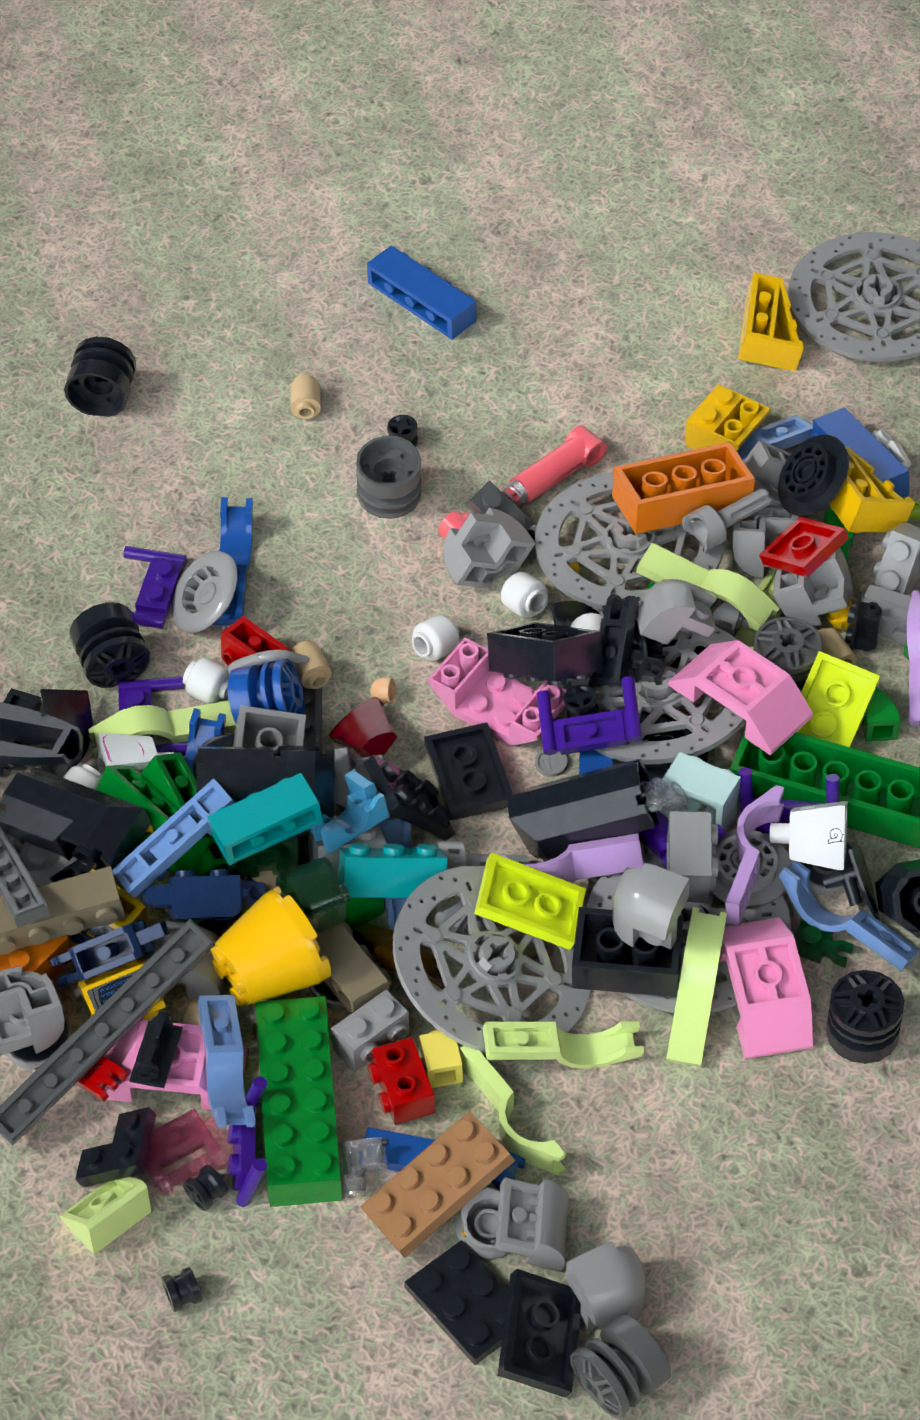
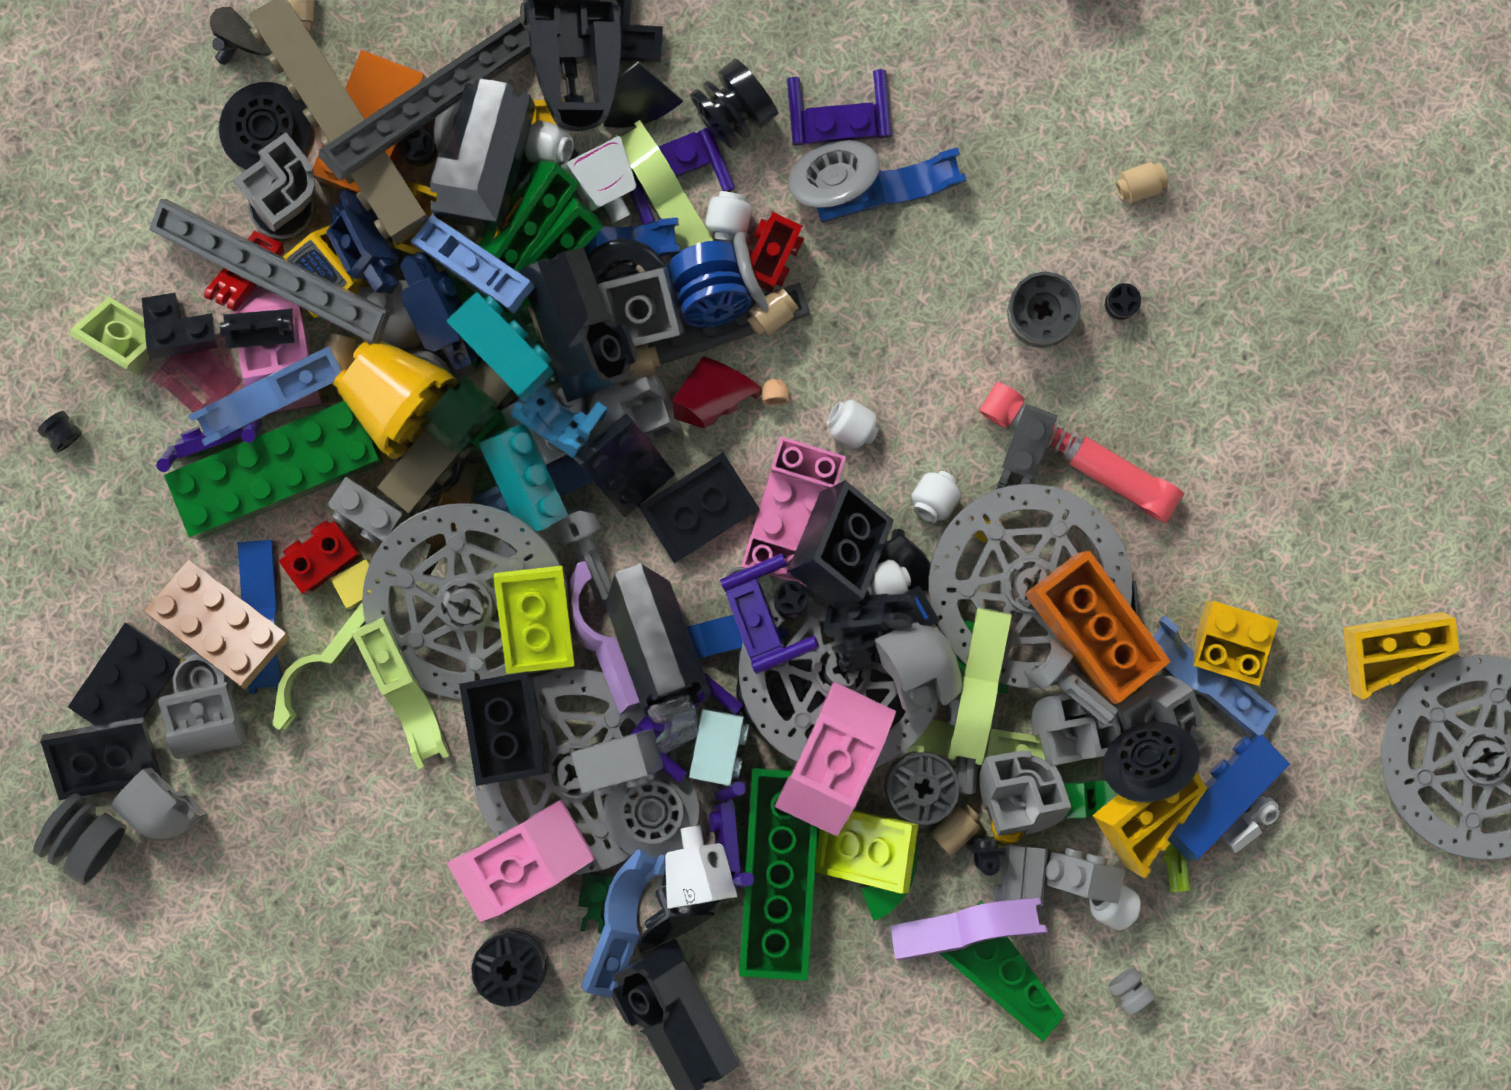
camera: 70 degrees right, 35 degrees up
(205, 1187) = (164, 416): black wheel -> none
(359, 1158) = (230, 546): clear piece -> none
(421, 292) = (1335, 256): blue brick -> none
(486, 548) = (975, 440): light grey brick -> none
(649, 905) = (519, 743): light grey brick -> none
(696, 988) = (492, 802): yellowish green piece -> none
(761, 811) = (627, 821): lavender piece -> none
(803, 546) = (1054, 774): red tile -> none

